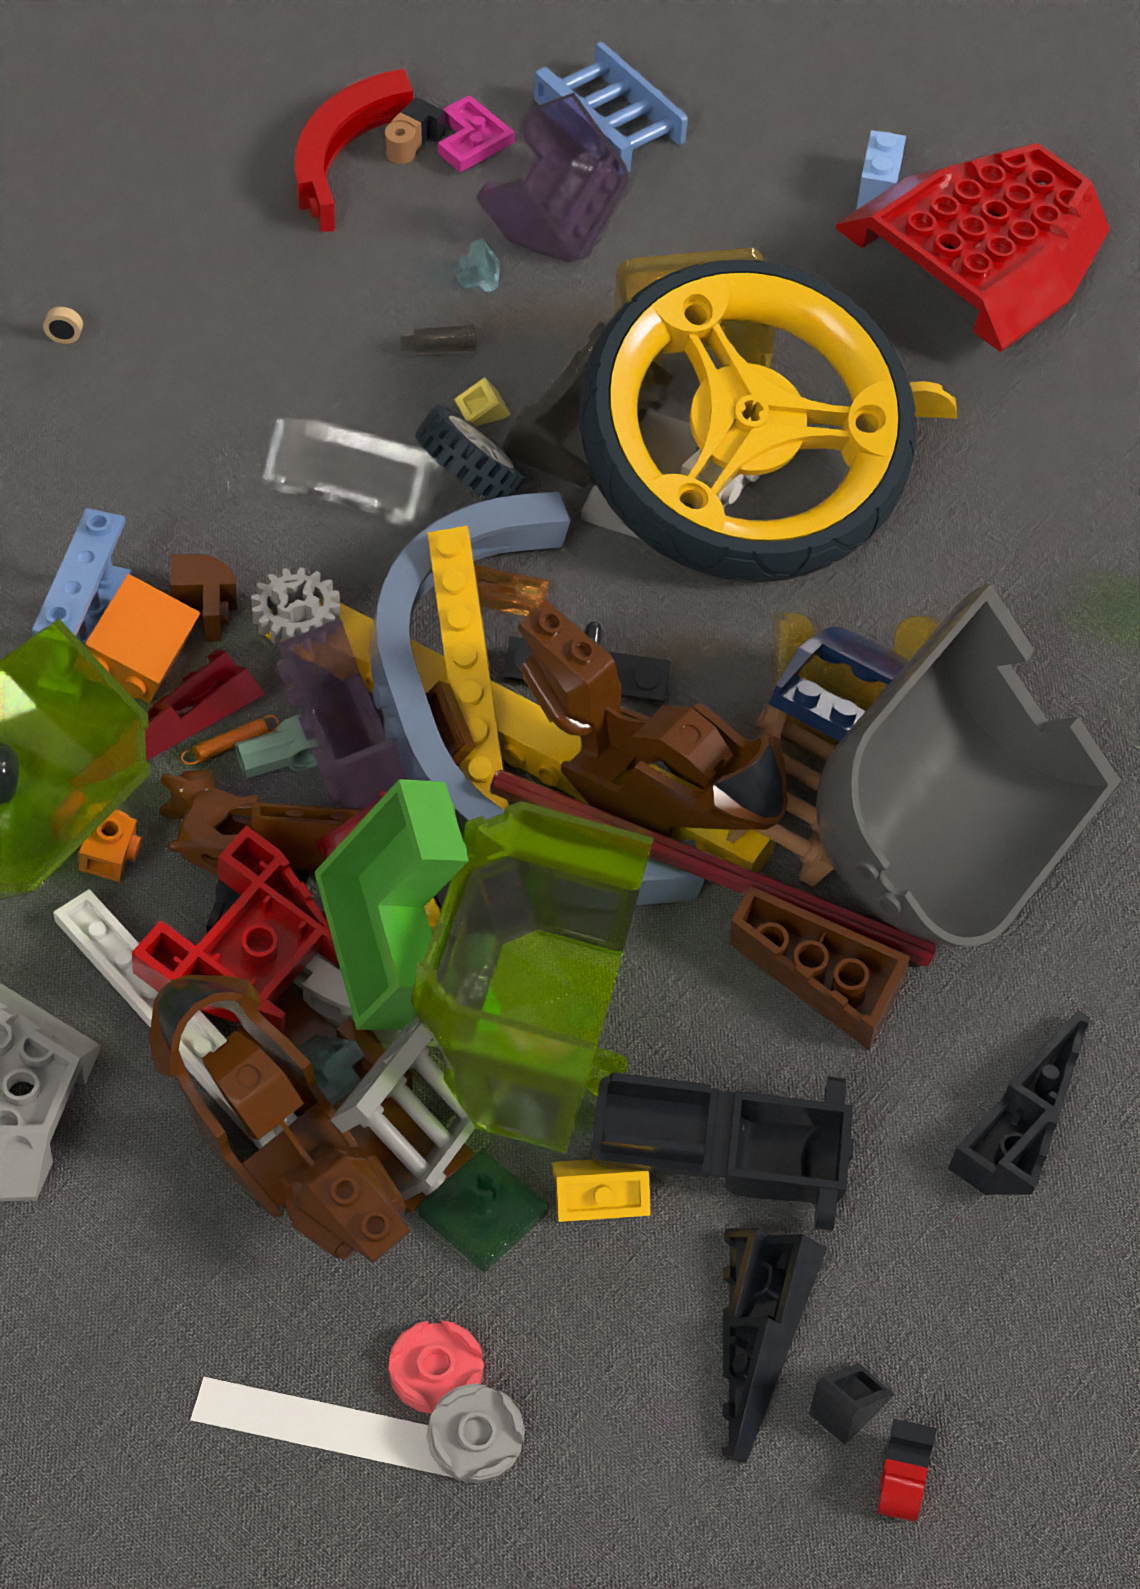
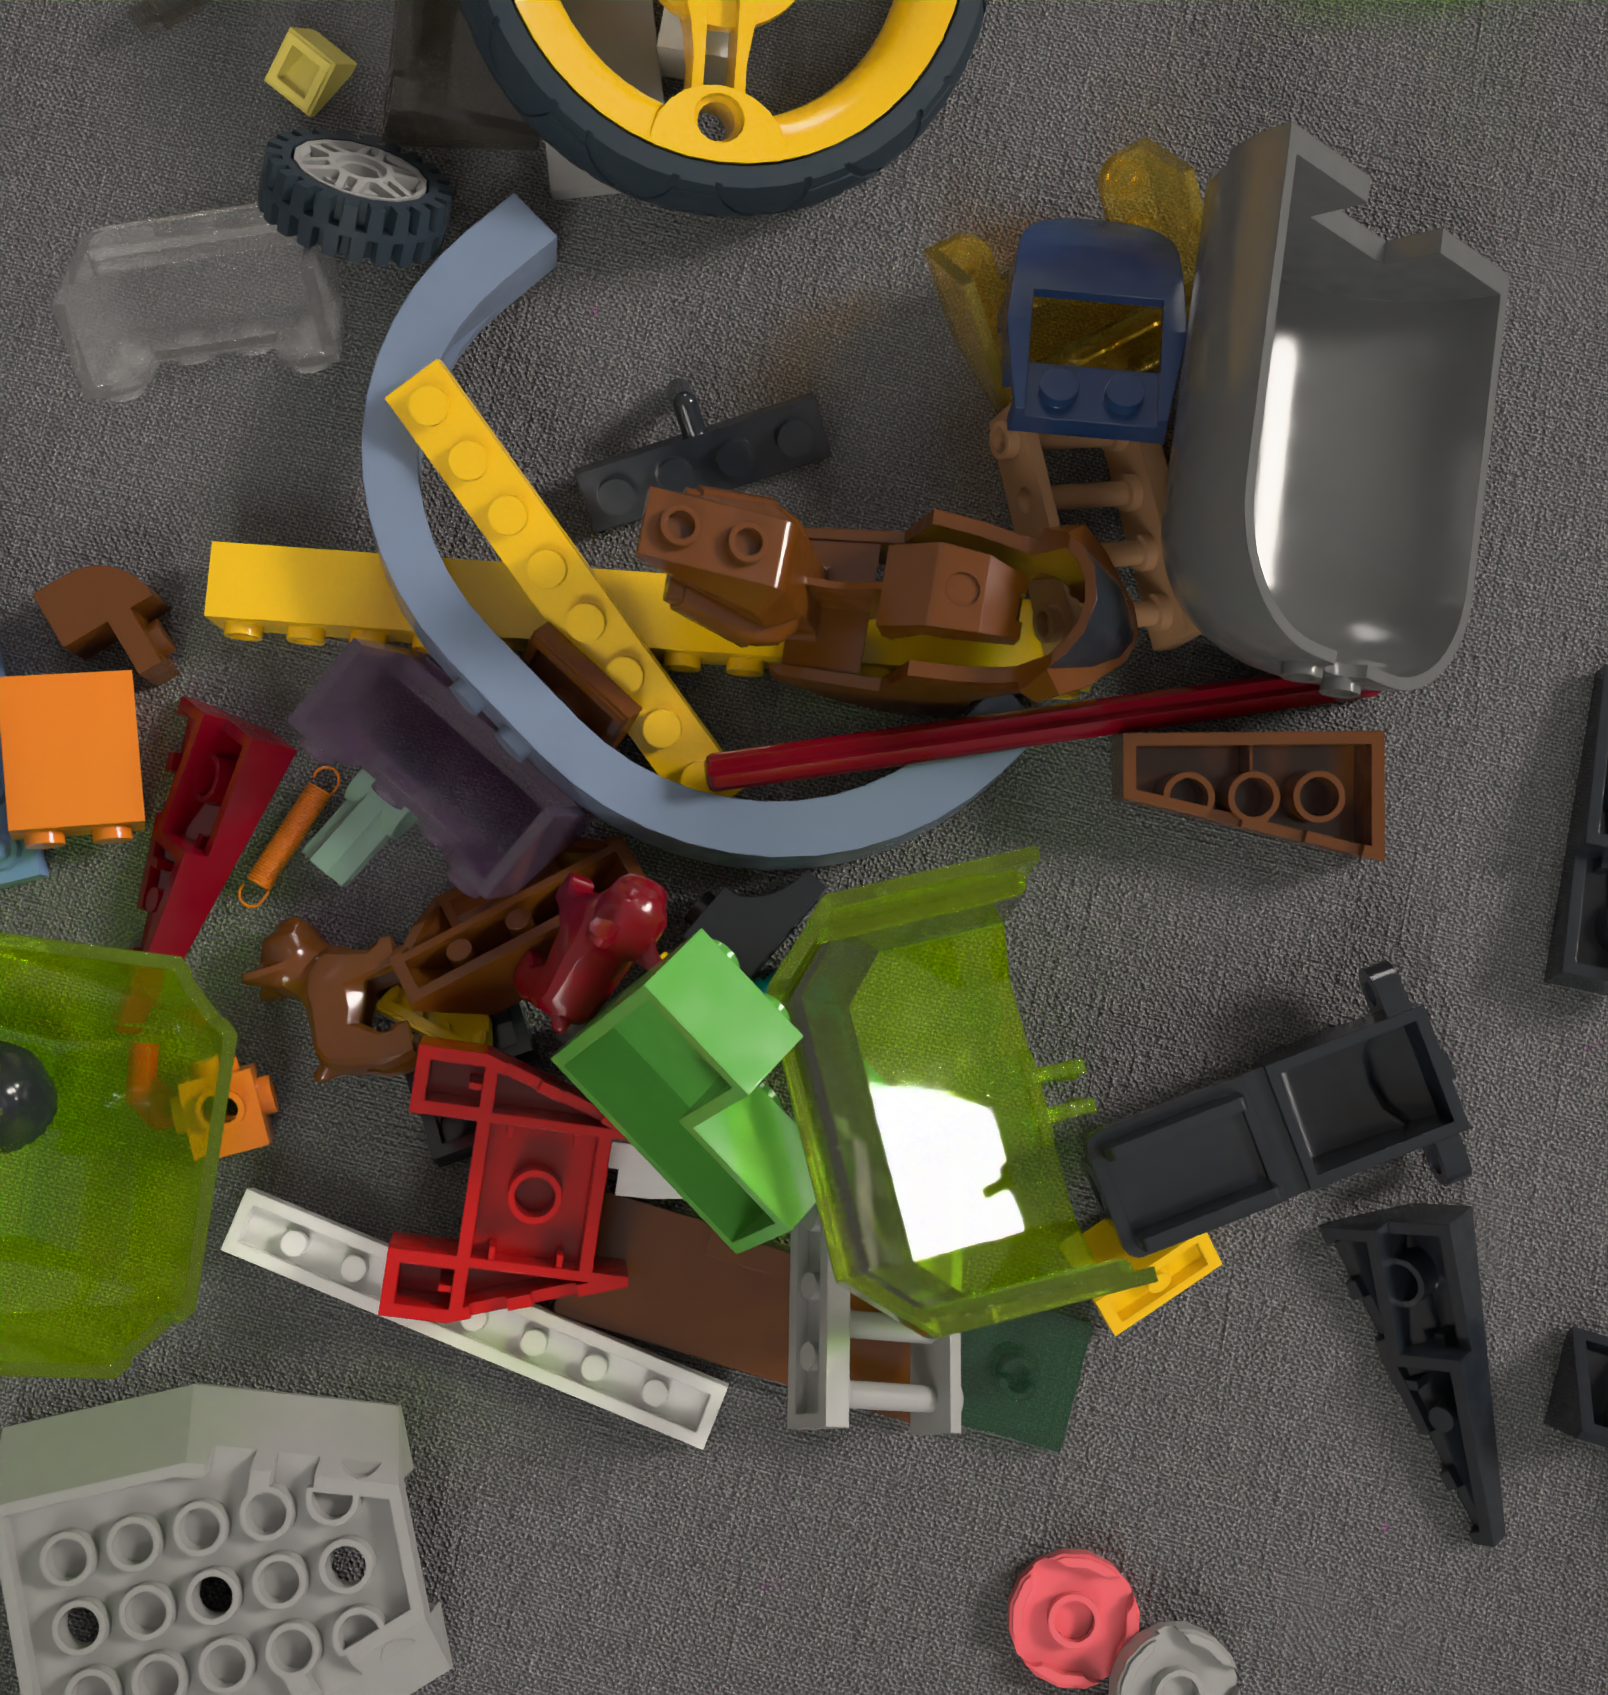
camera: 20 degrees left, 30 degrees up
(294, 604) = (244, 583): light grey gear -> none
(320, 1174) = (838, 1495): reddish brown piece -> none
(332, 1064) = (709, 1298): clear light blue slope -> none
(505, 596) = (518, 359): clear orange tile -> none

